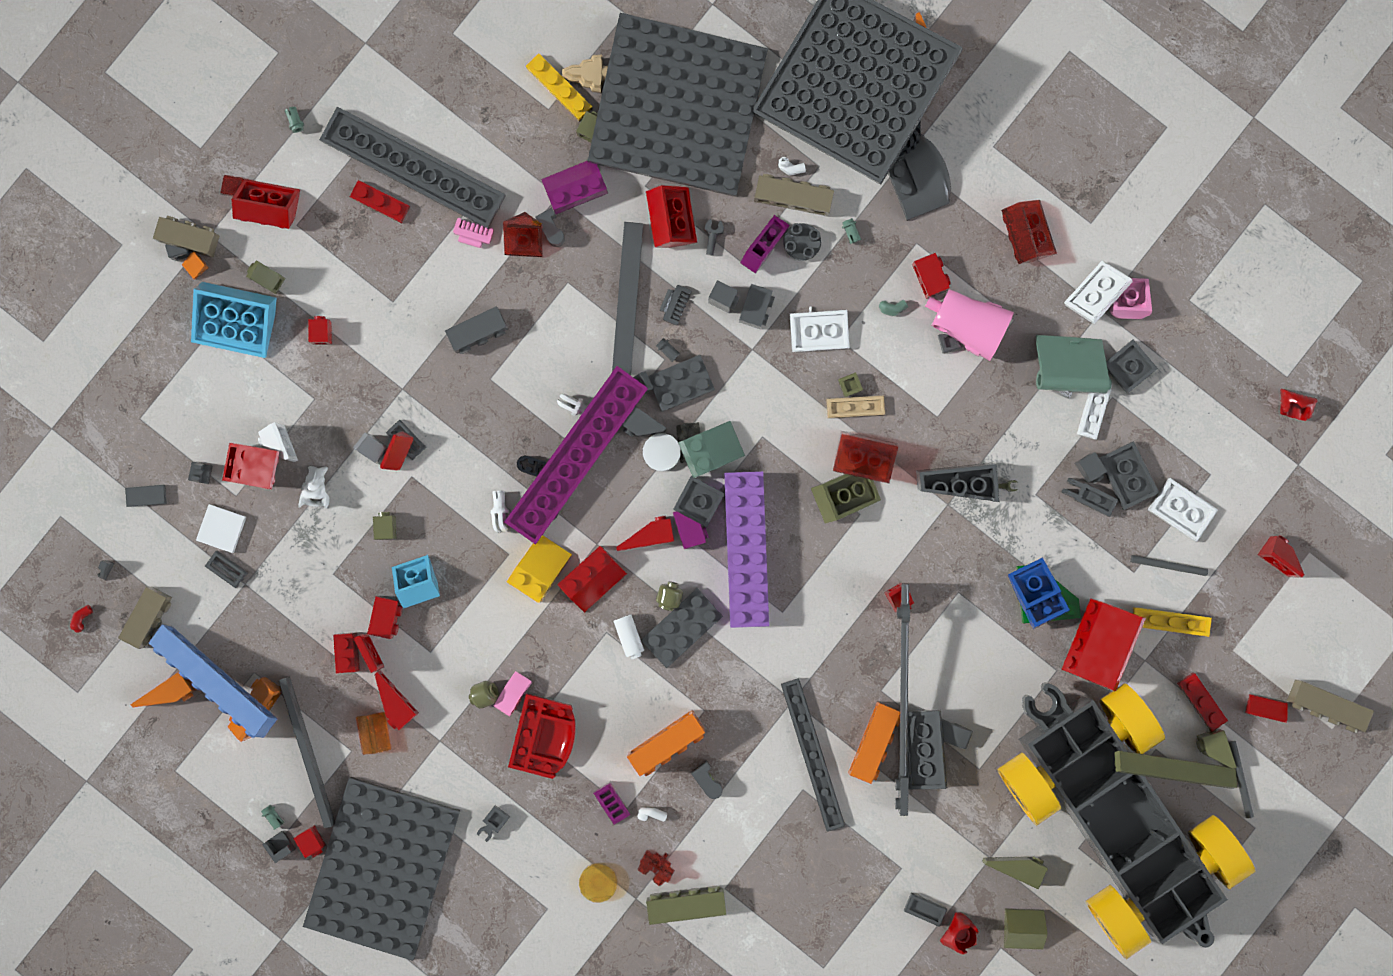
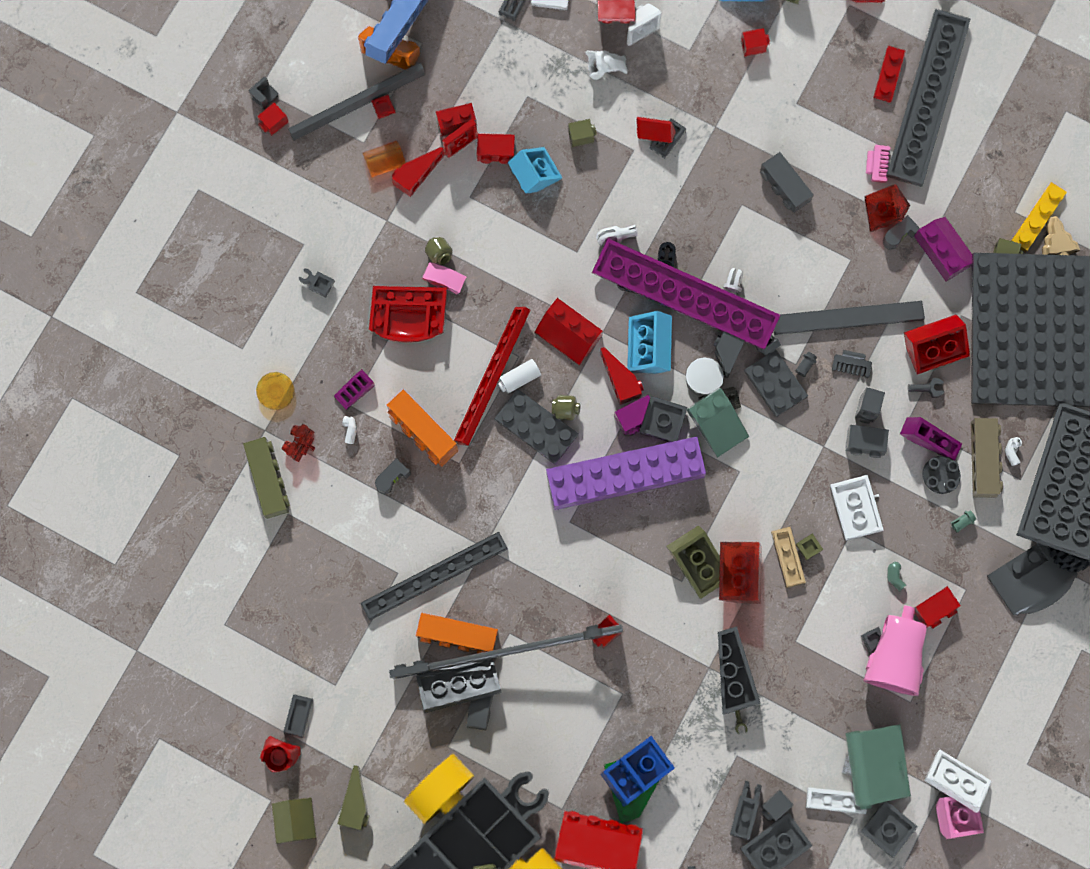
camera: 80 degrees right, 10 degrees down
(272, 817) = (290, 82): sand green pin -> none
(316, 724) = (383, 106): none -> red tile
(371, 448) = (654, 104): light grey slope -> none
(381, 868) = (257, 189): dark grey plate -> none
(539, 568) = (568, 281): yellow slope -> none
(618, 500) = (649, 343): none -> medium azure slope
(623, 663) = (491, 376): none -> red tile
(1028, 231) = (1004, 699): clear red slope -> none

